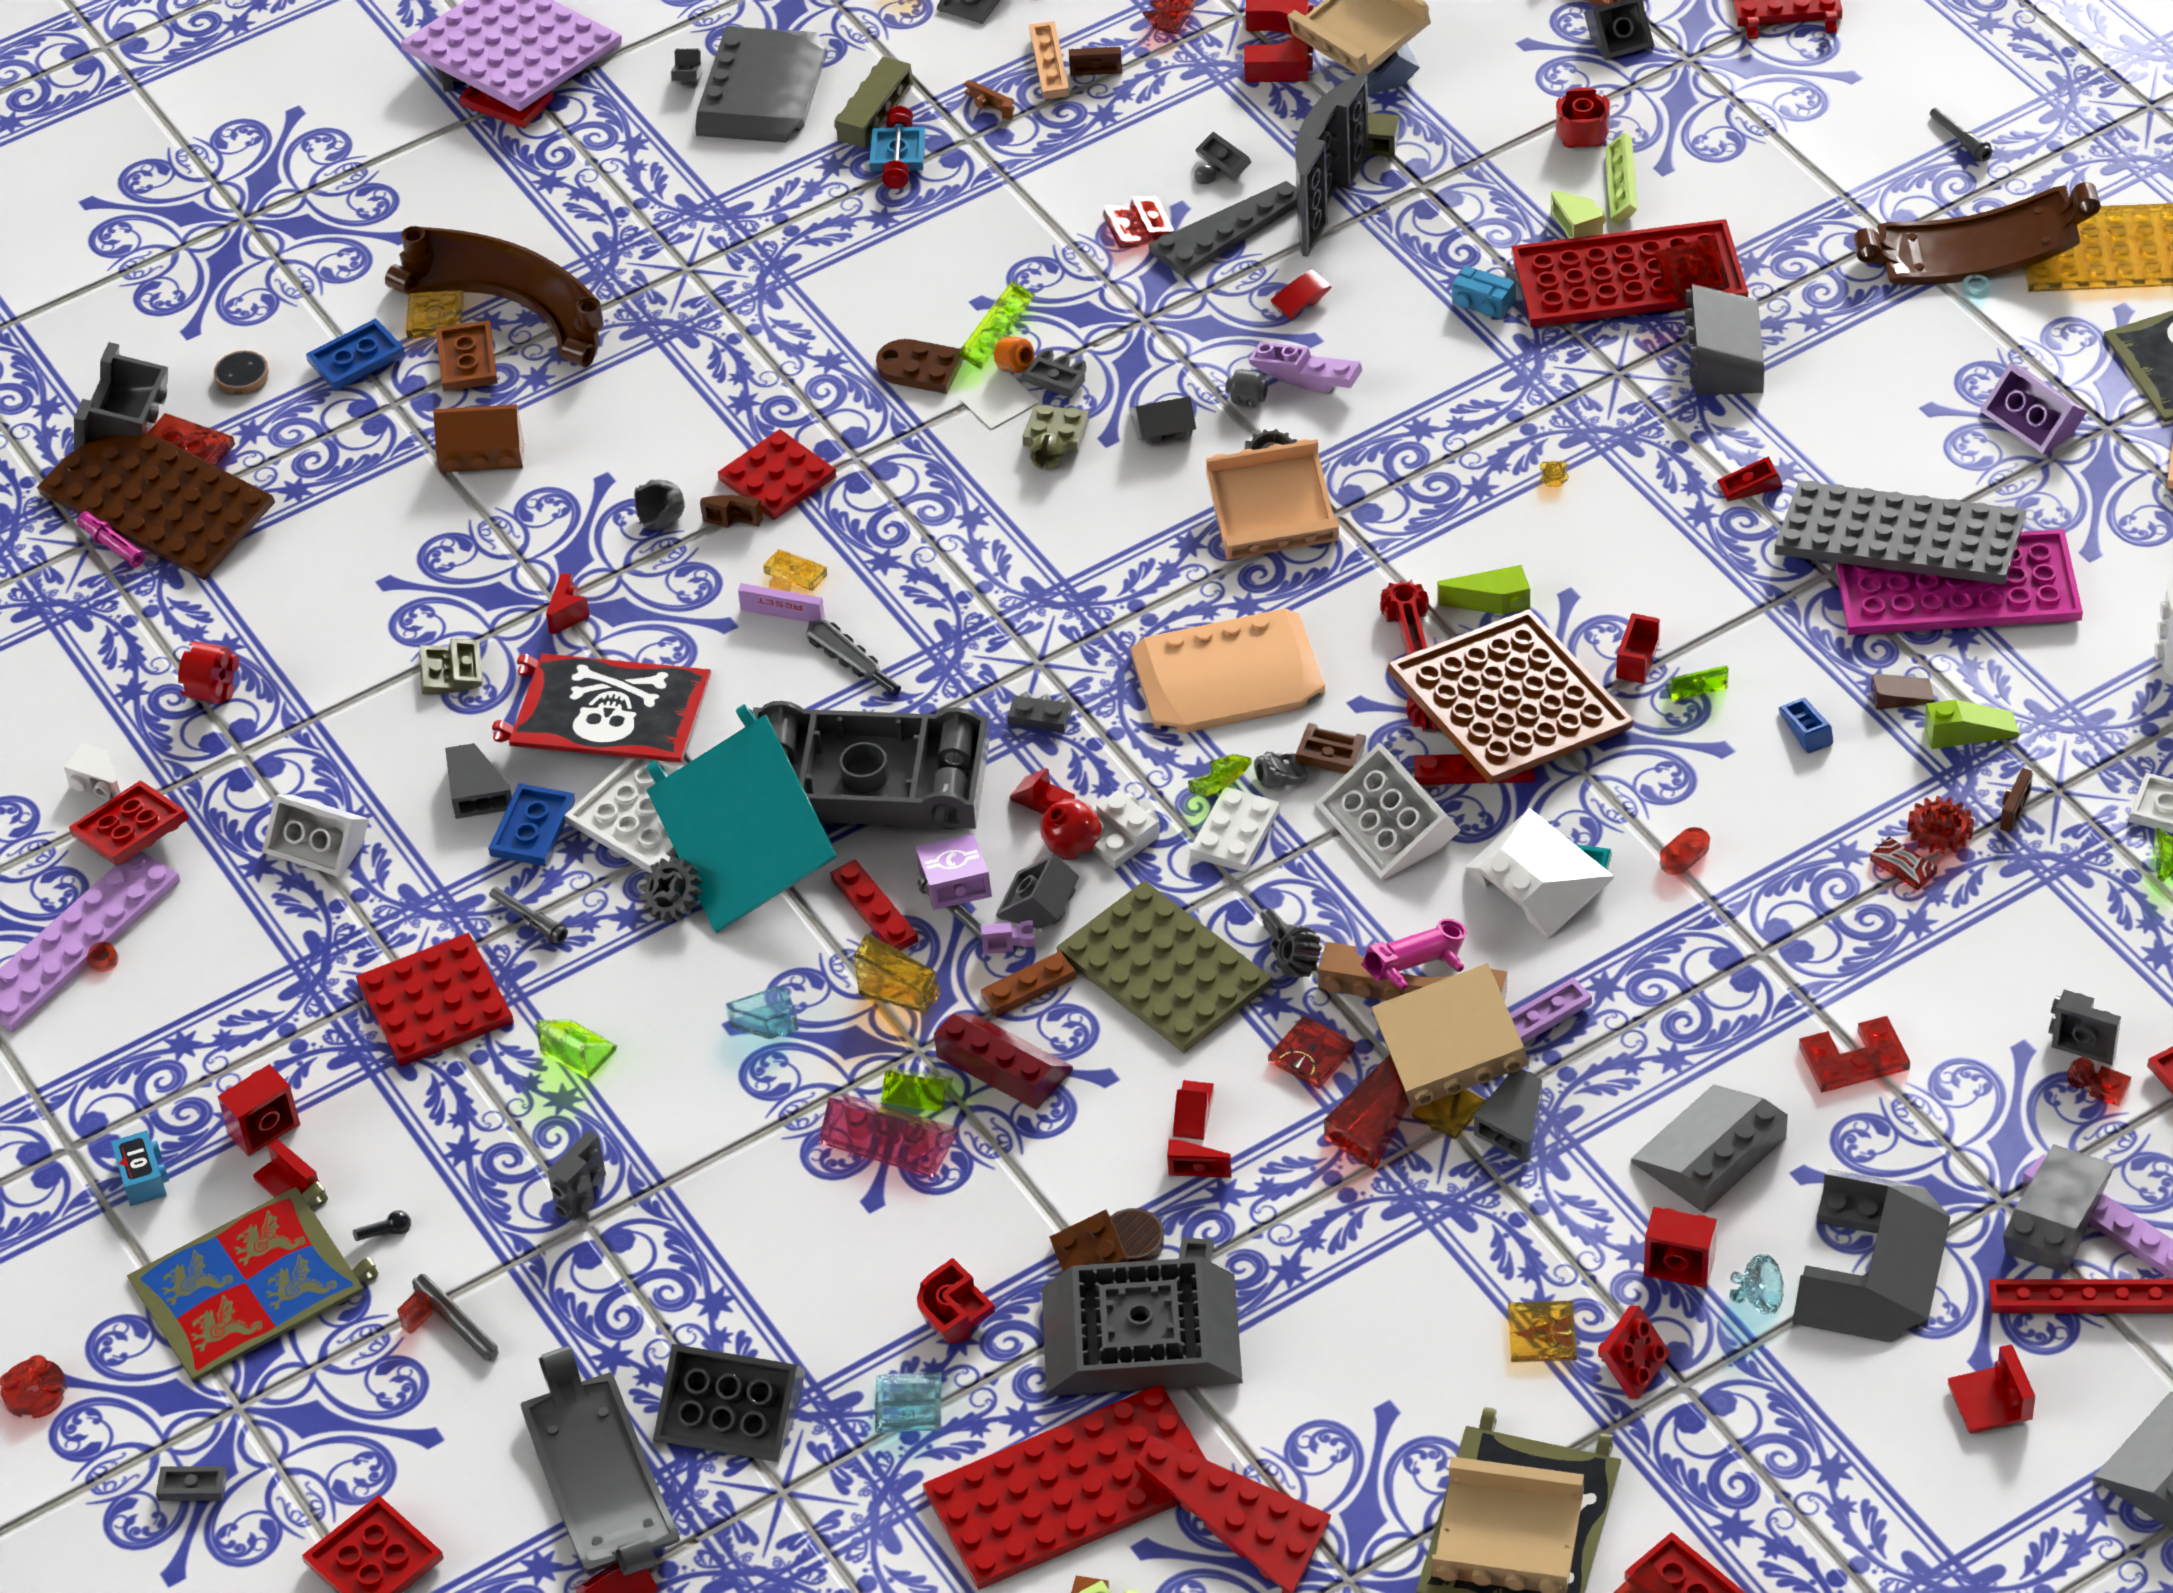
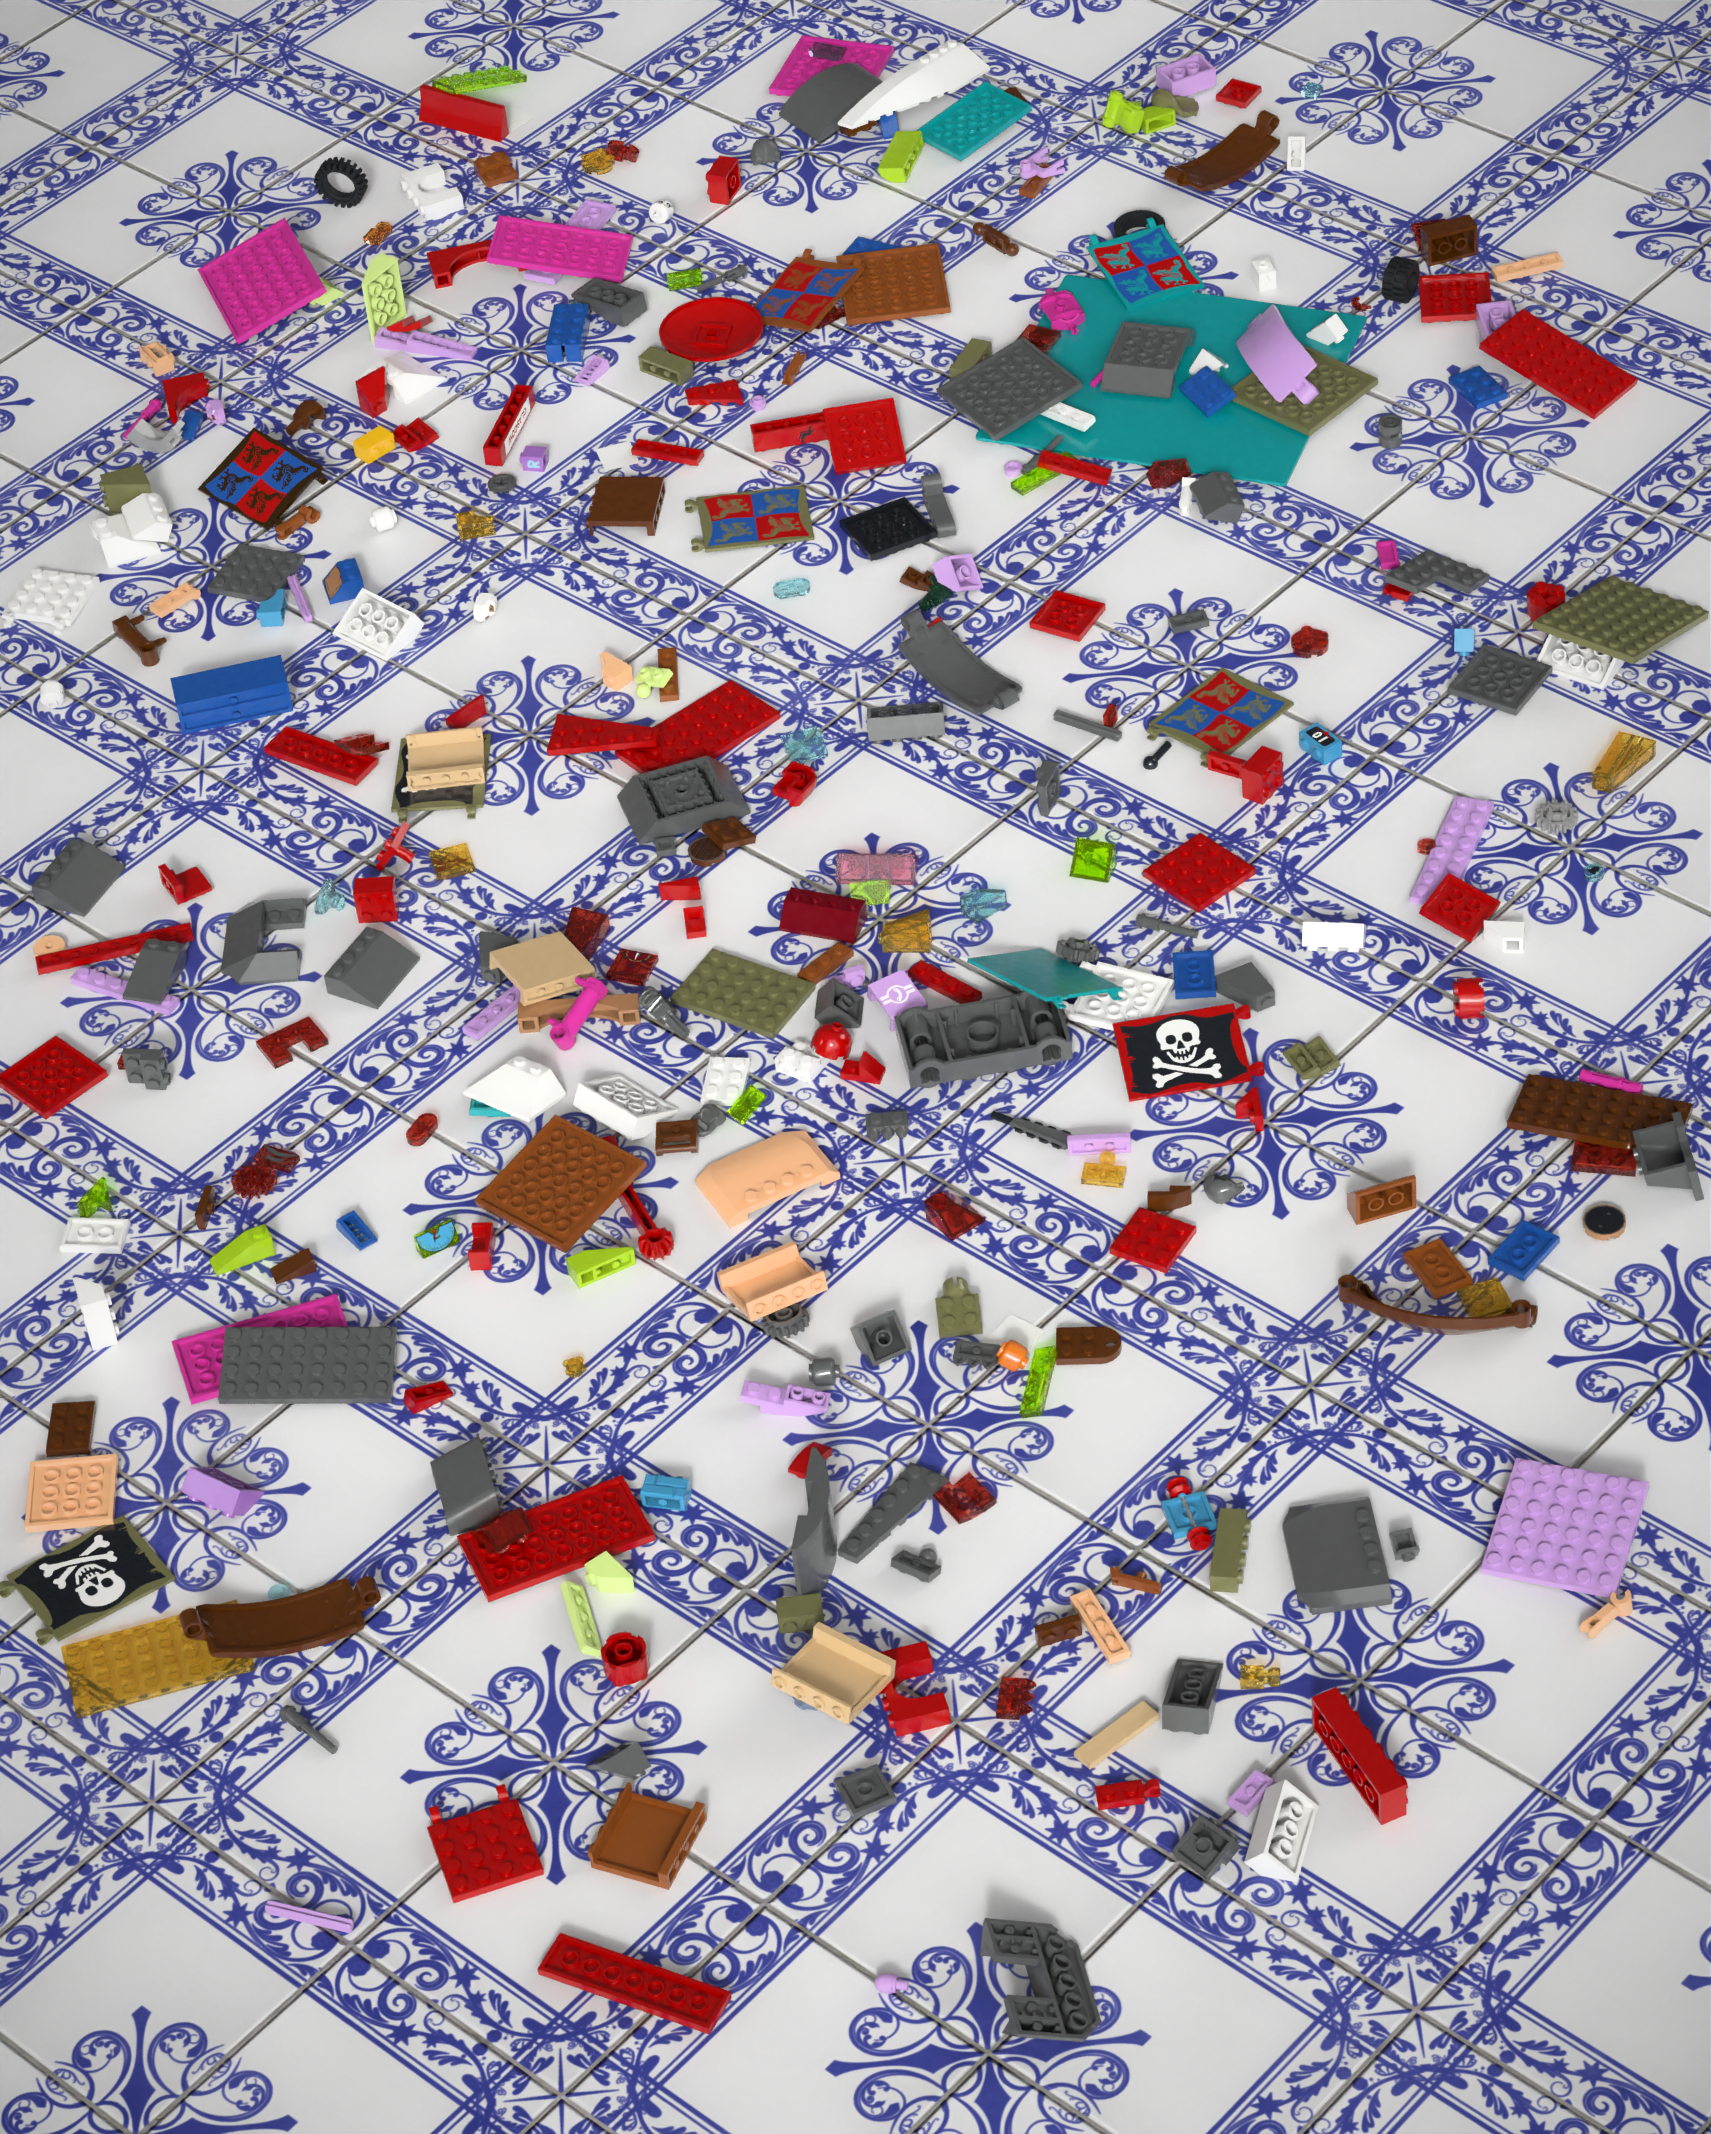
camera: 165 degrees right, 5 degrees down
(1008, 561) = (951, 1214): none -> clear red slope

